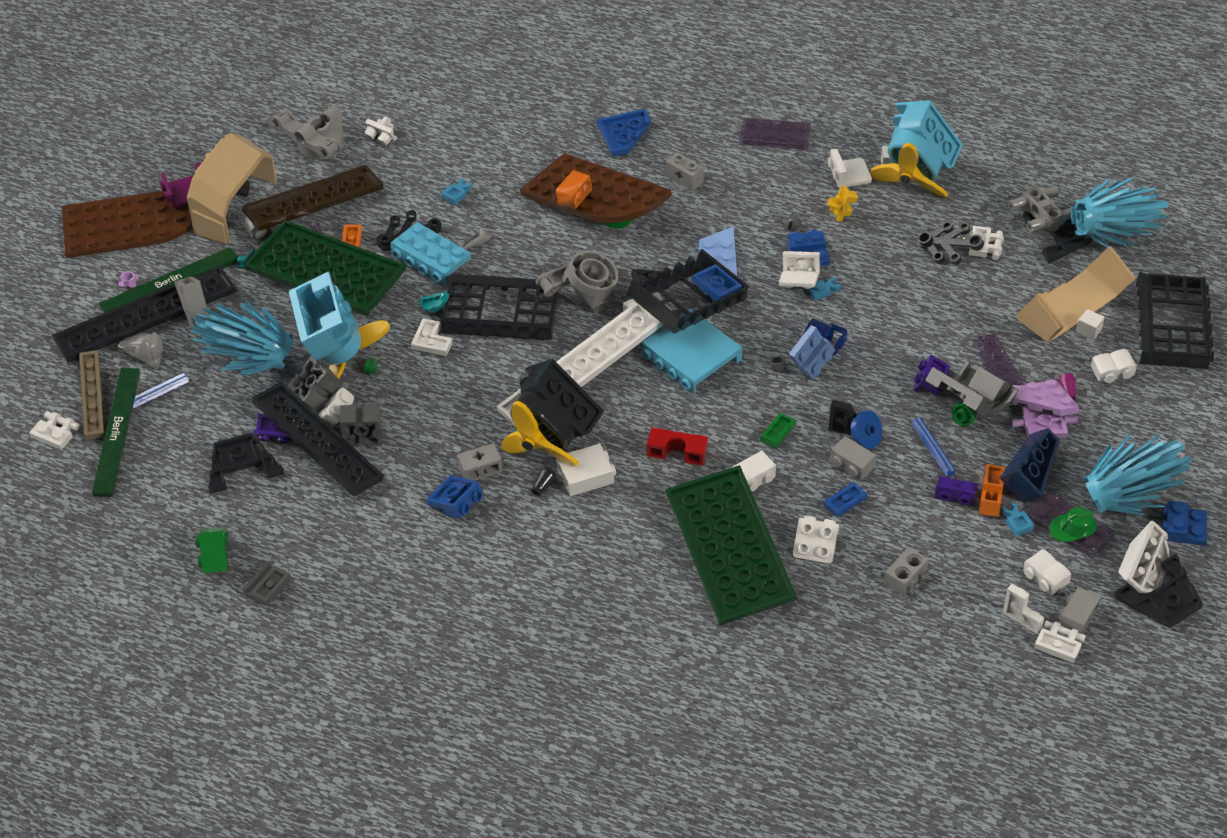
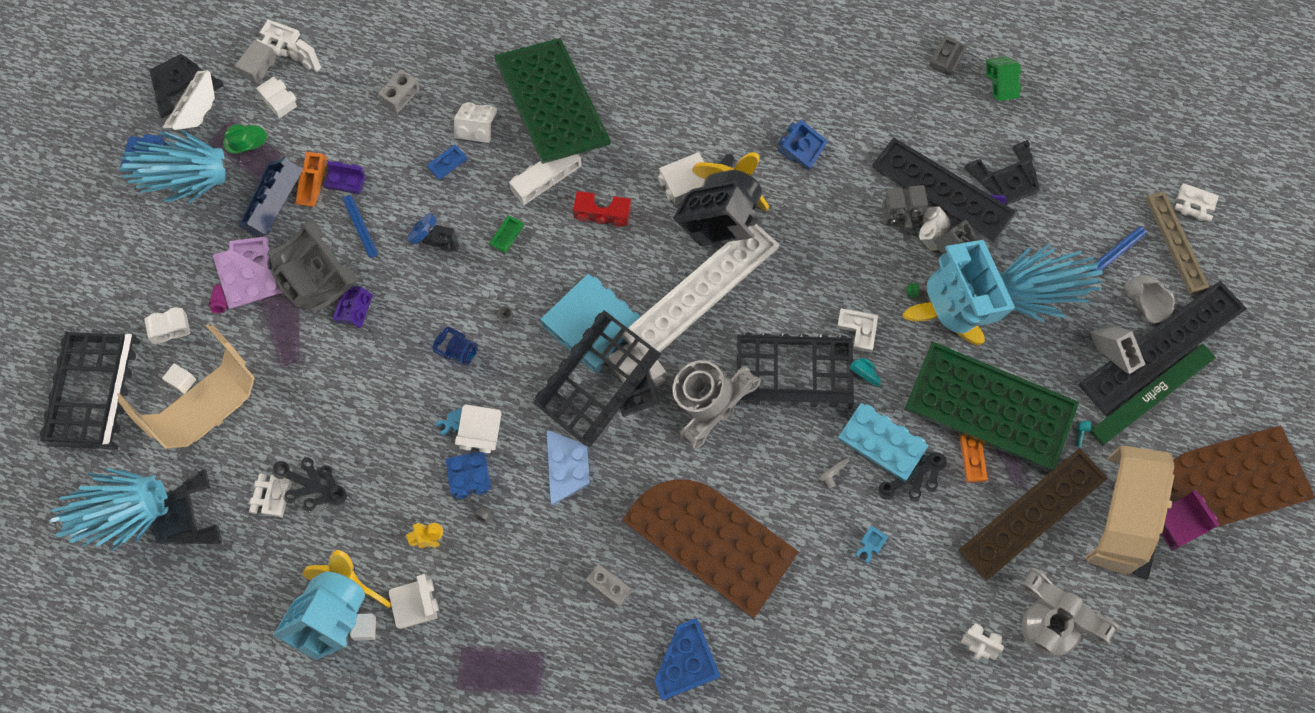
camera: 175 degrees right, 20 degrees up
(116, 432) = (1136, 199): dark green tile -> none
(128, 279) = (1201, 389): lavender plate -> none
(479, 462) = (785, 181): light grey brick -> none
(573, 189) = (733, 515): orange piece -> none
(715, 282) = (567, 393): blue plate -> none
(811, 352) = (468, 310): medium blue plate -> none
(852, 458) = (435, 201): light grey brick -> none
(1017, 522) = (293, 148): dark azure plate -> none
(1042, 208) = (196, 534): light grey piece -> none

